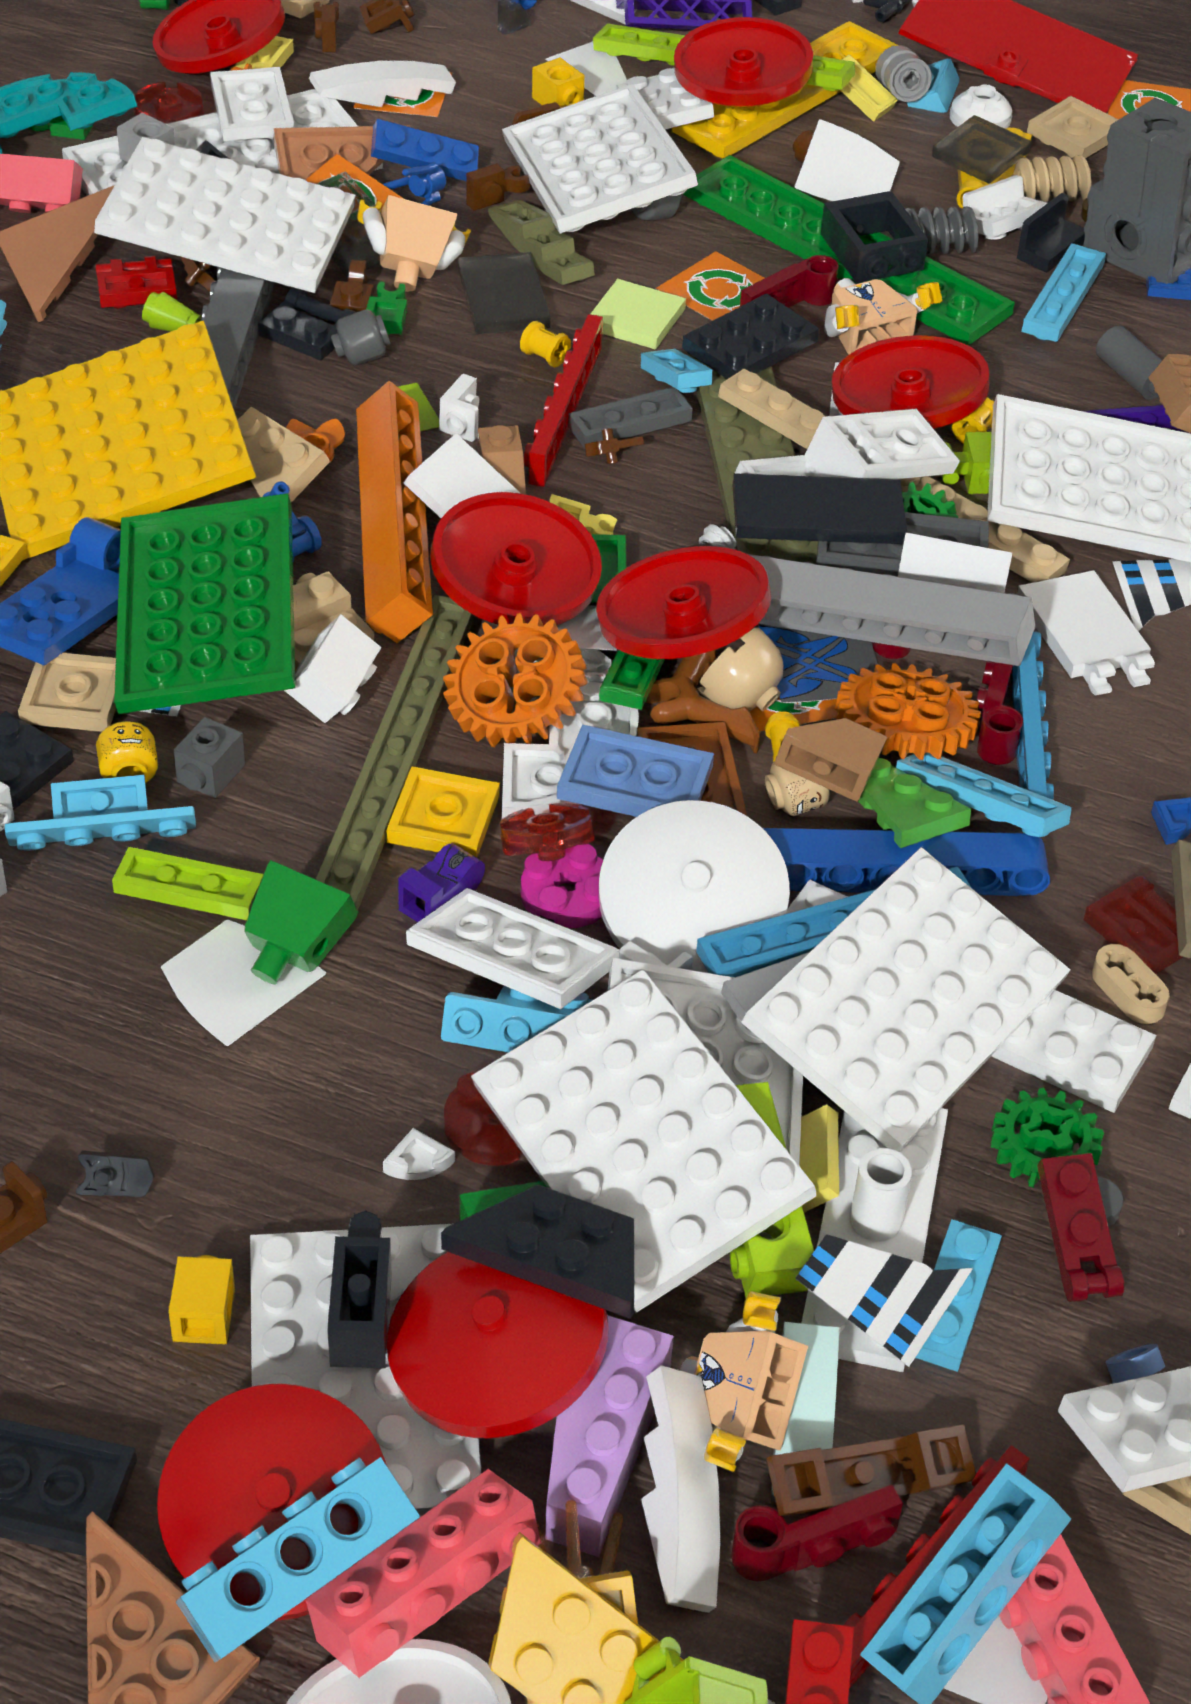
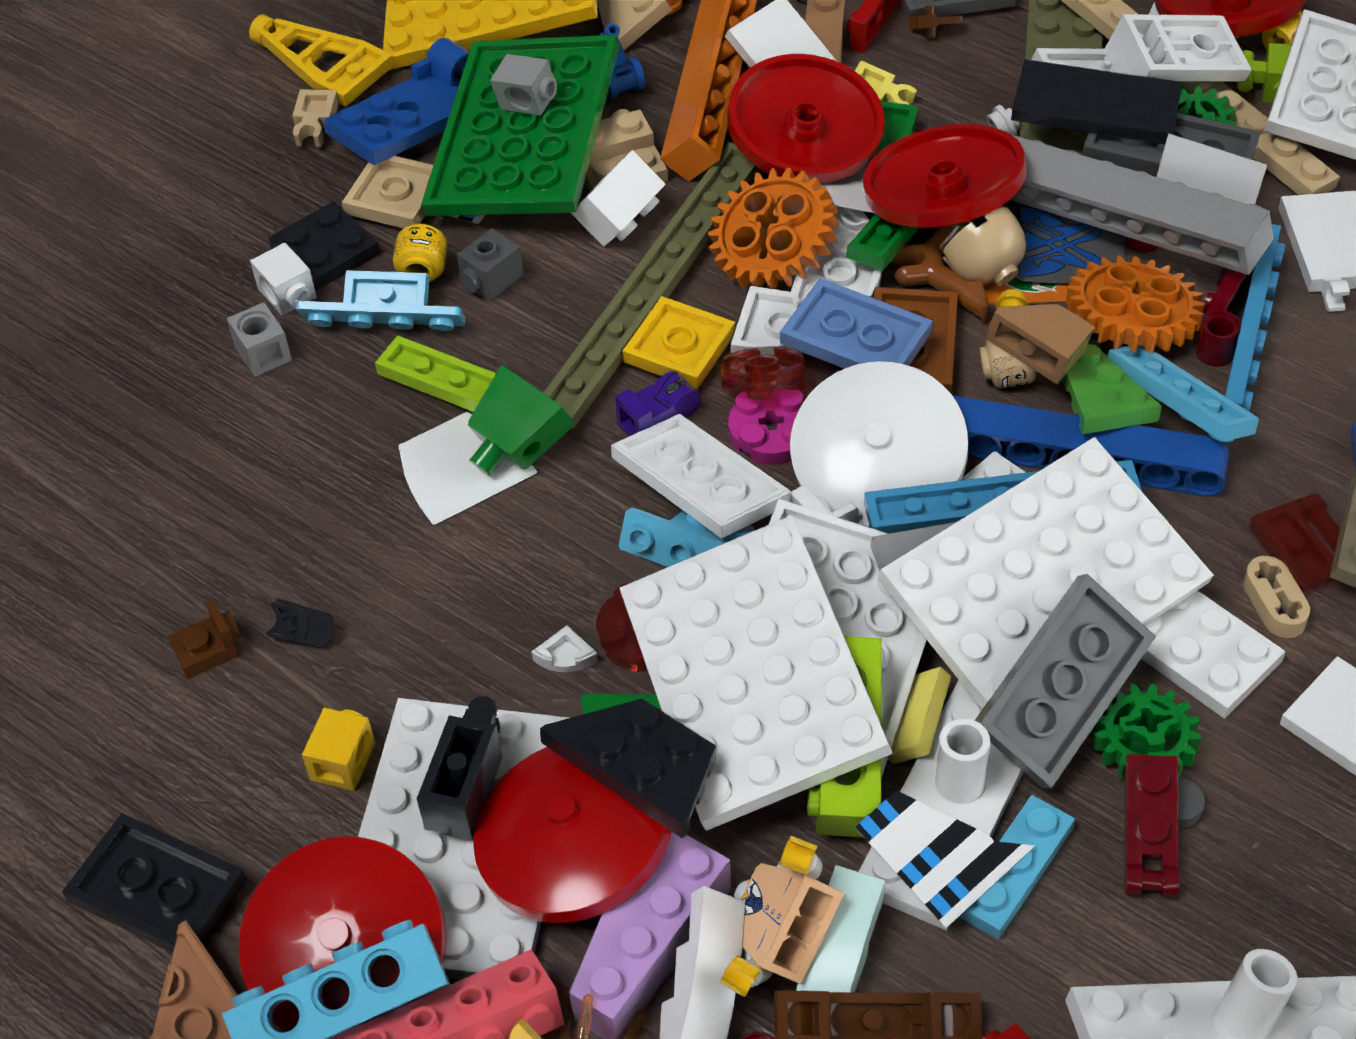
camera: 20 degrees right, 5 degrees up
(203, 557) = (524, 84): none -> light grey brick
(961, 1096) = (1064, 680): none -> dark grey plate
(1135, 1363) = (1166, 967): medium blue tile -> none

